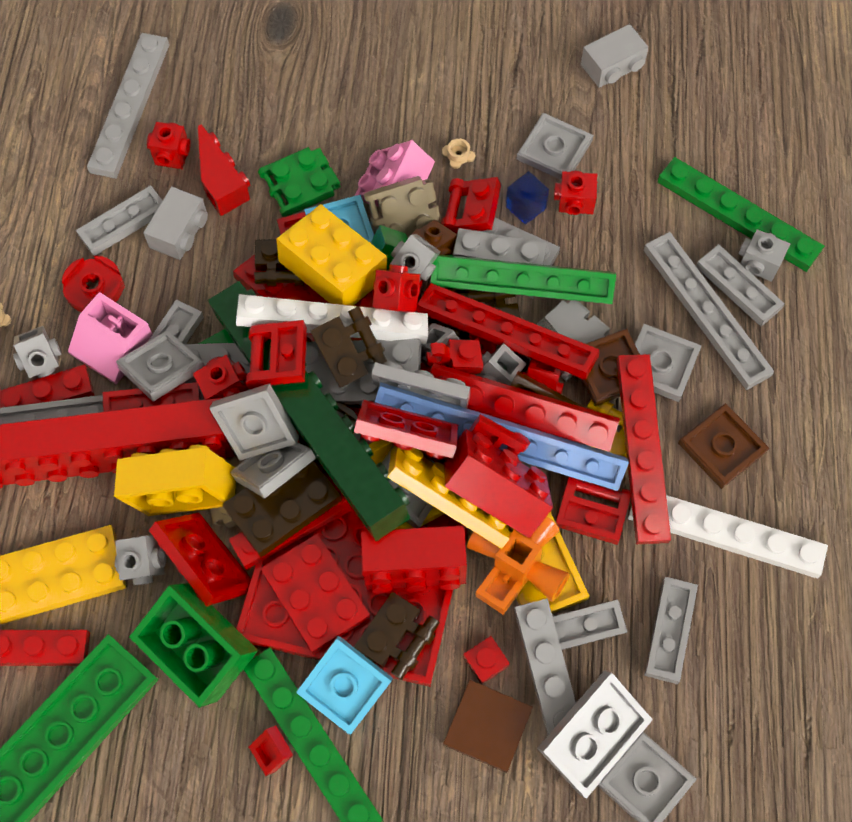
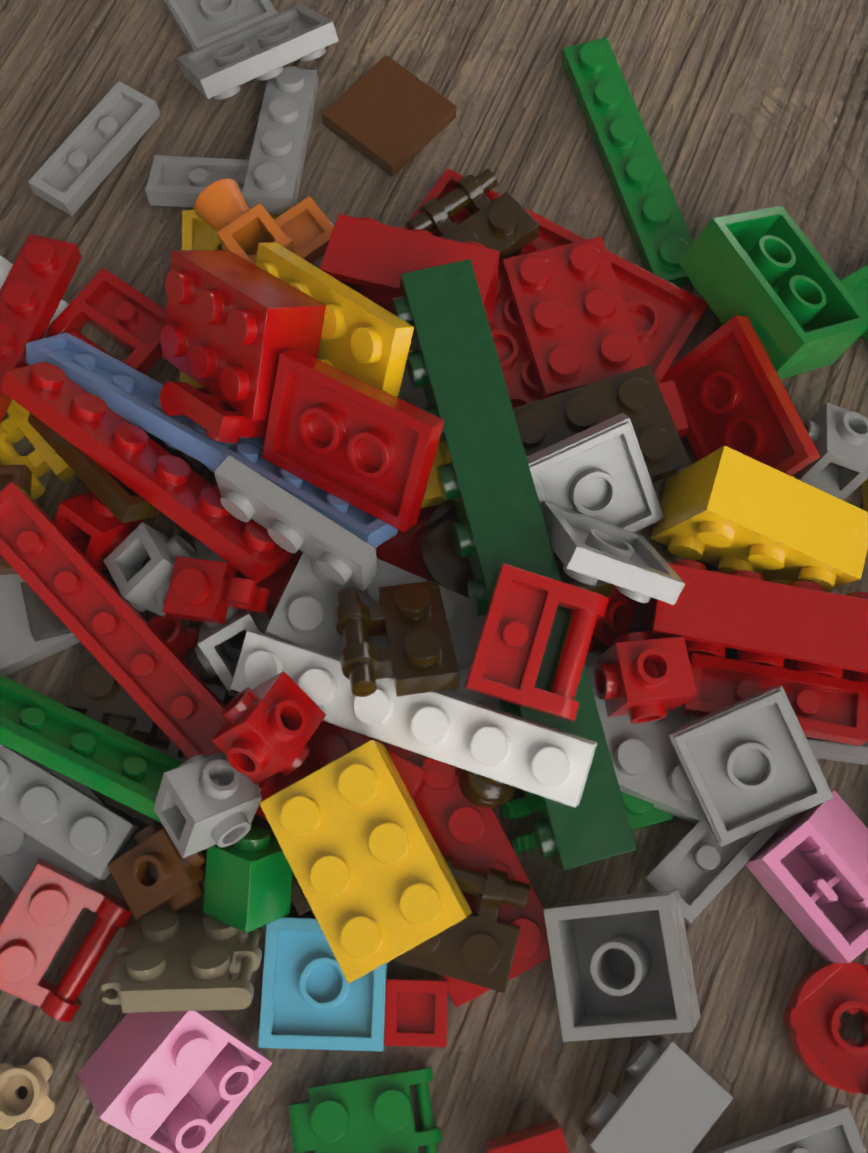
camera: 160 degrees left, 5 degrees up
(202, 266) = (622, 966): none -> light grey brick
(270, 750) = (687, 156): red plate -> none
(344, 685) = (566, 193): medium azure plate -> none
(486, 660) = (359, 189): red plate -> none

